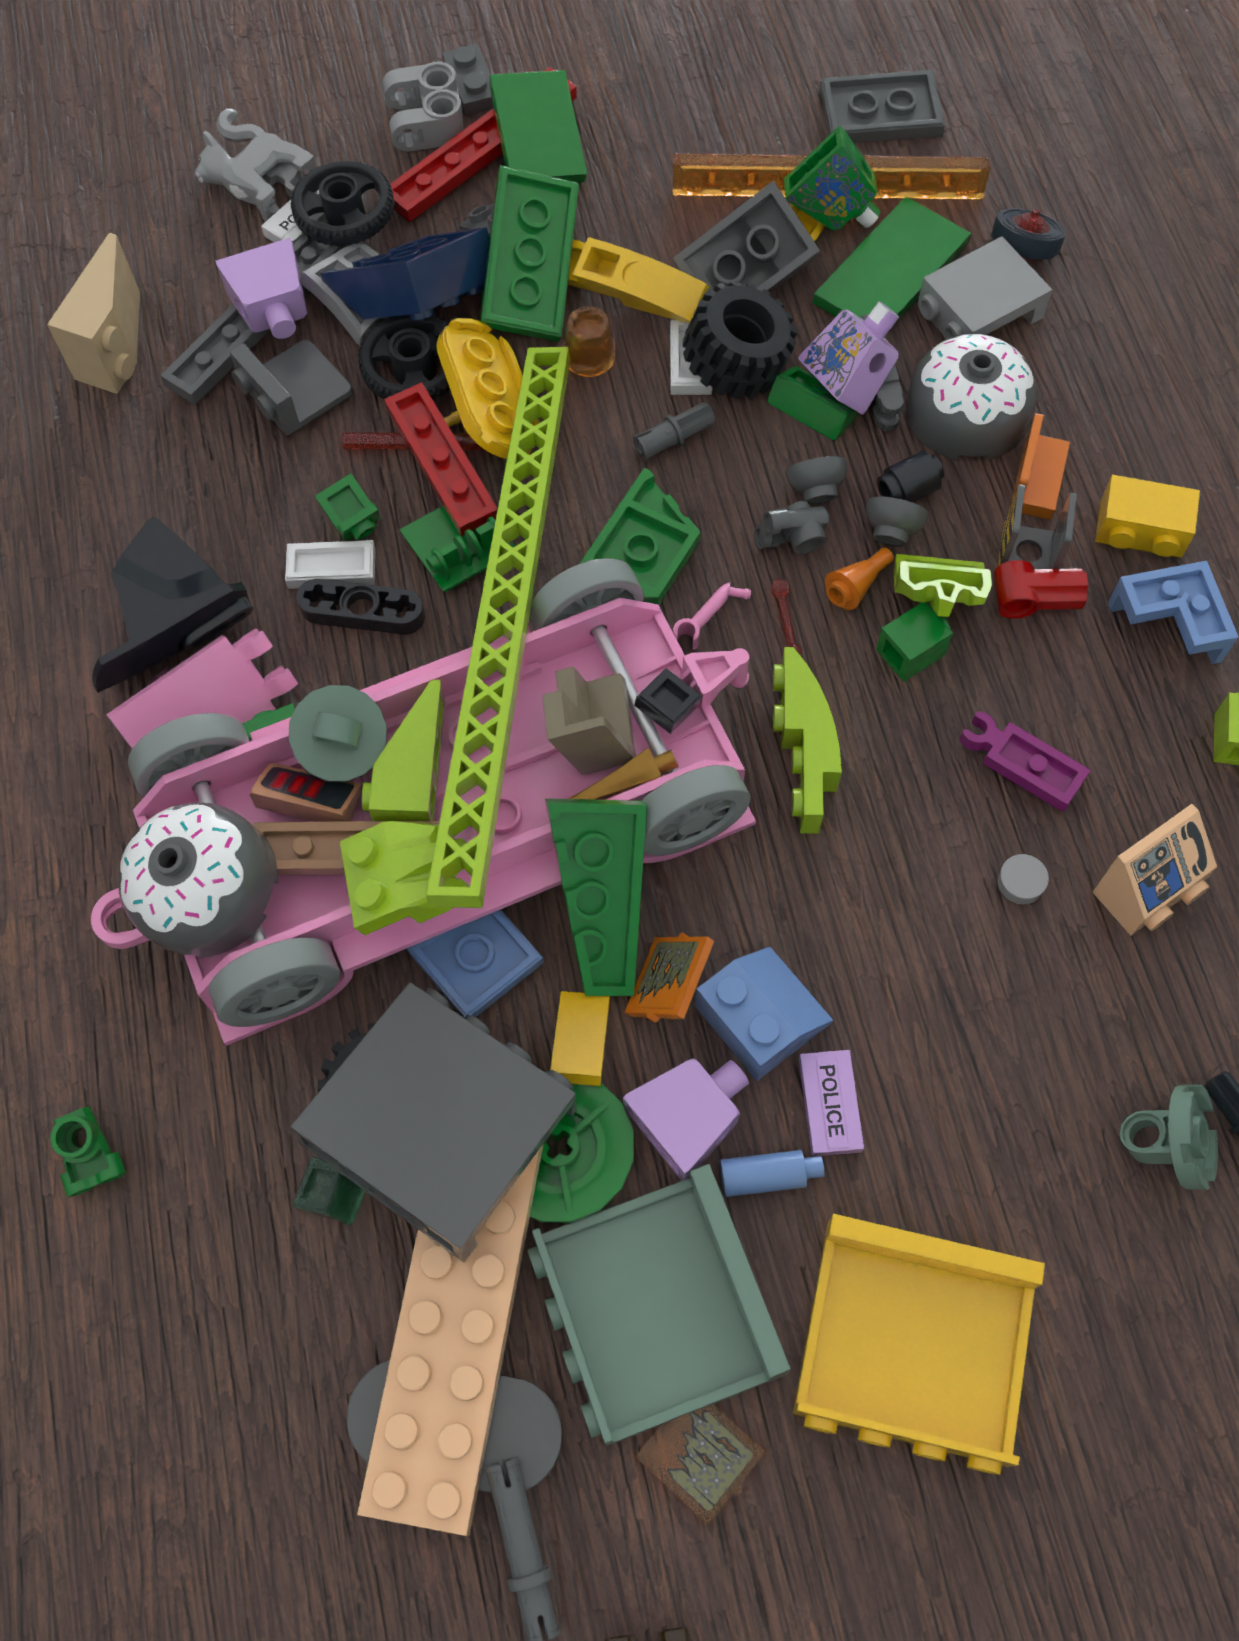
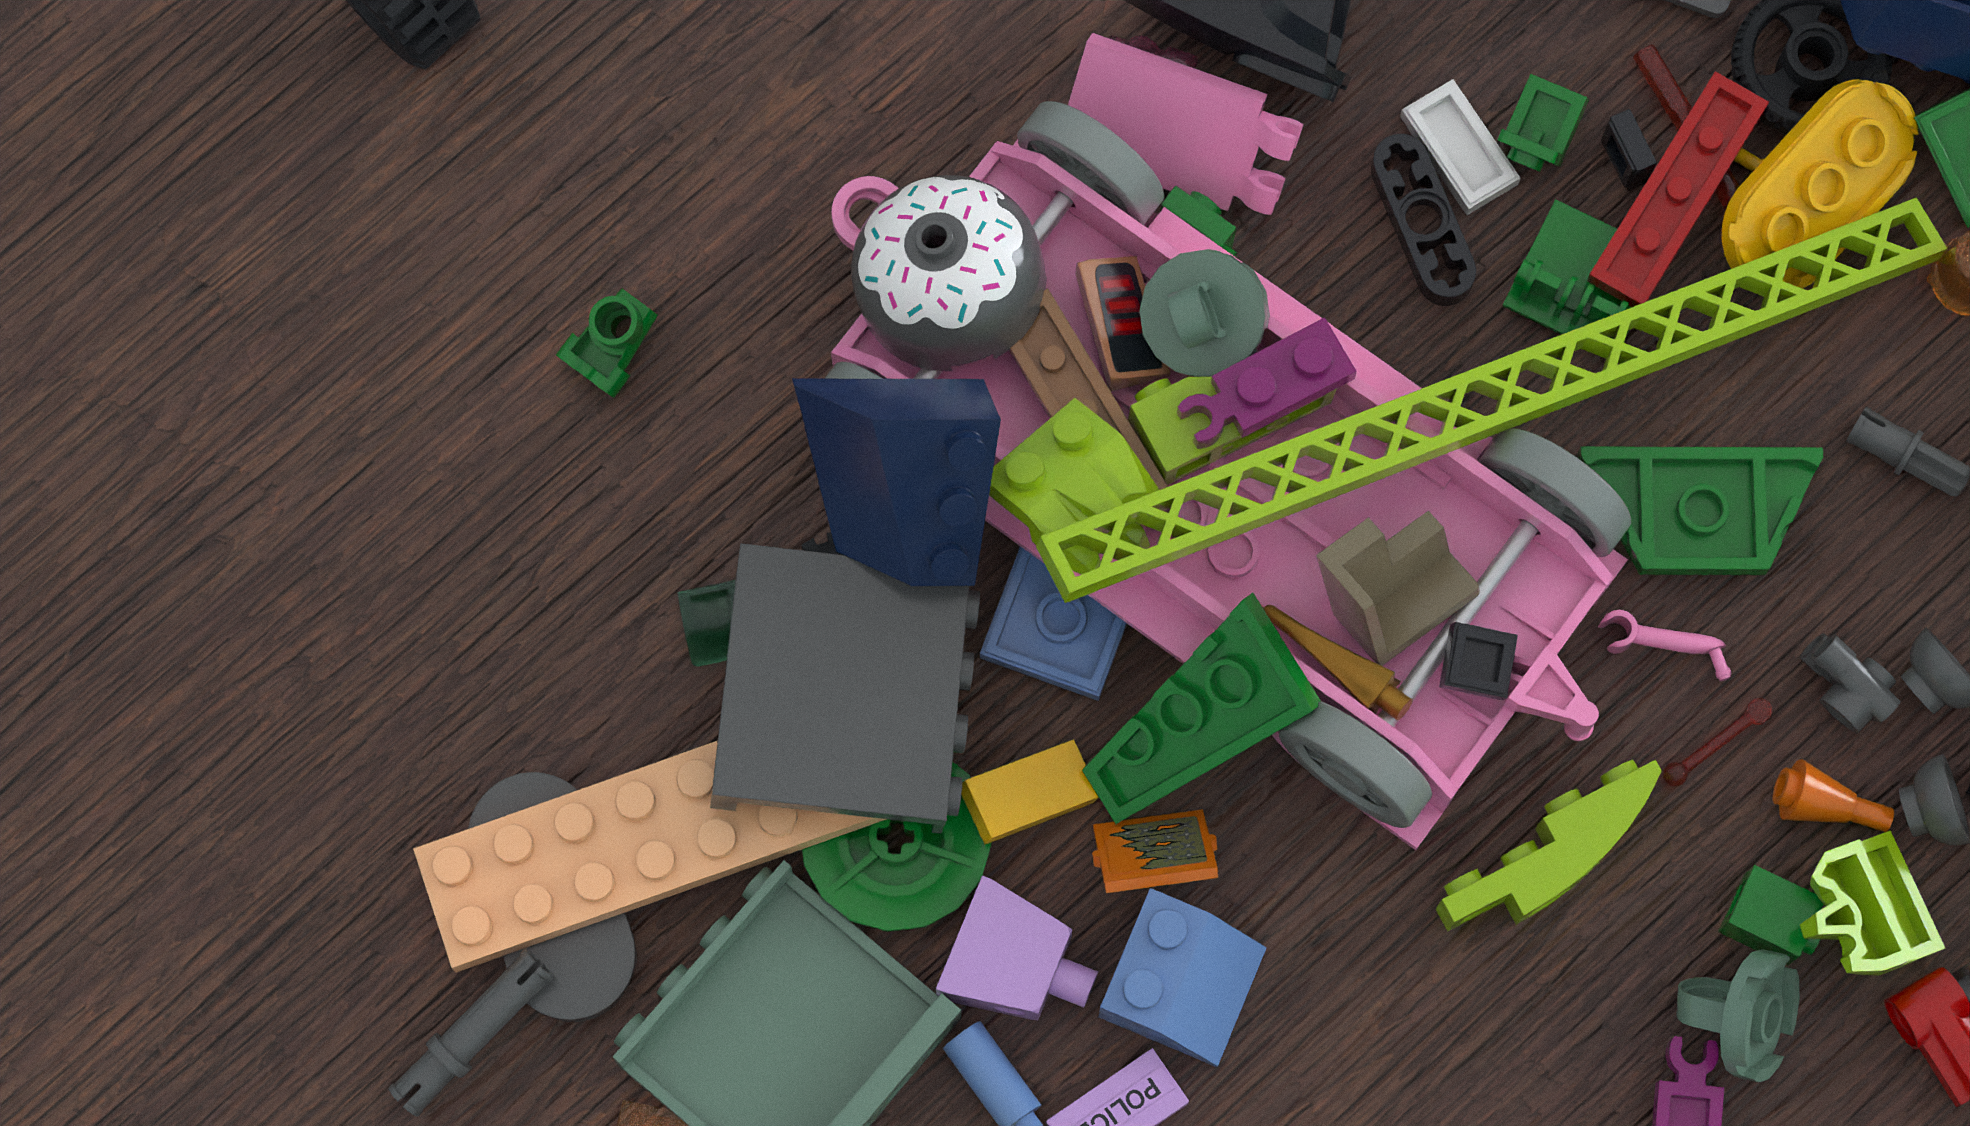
camera: 60 degrees right, 10 degrees up
(316, 975) = (904, 471): none -> dark blue wedge
(397, 473) = (1628, 150): none -> black tile
(412, 714) = (1272, 383): none -> magenta plate
(966, 687) = (1745, 1012): none -> sand green tile

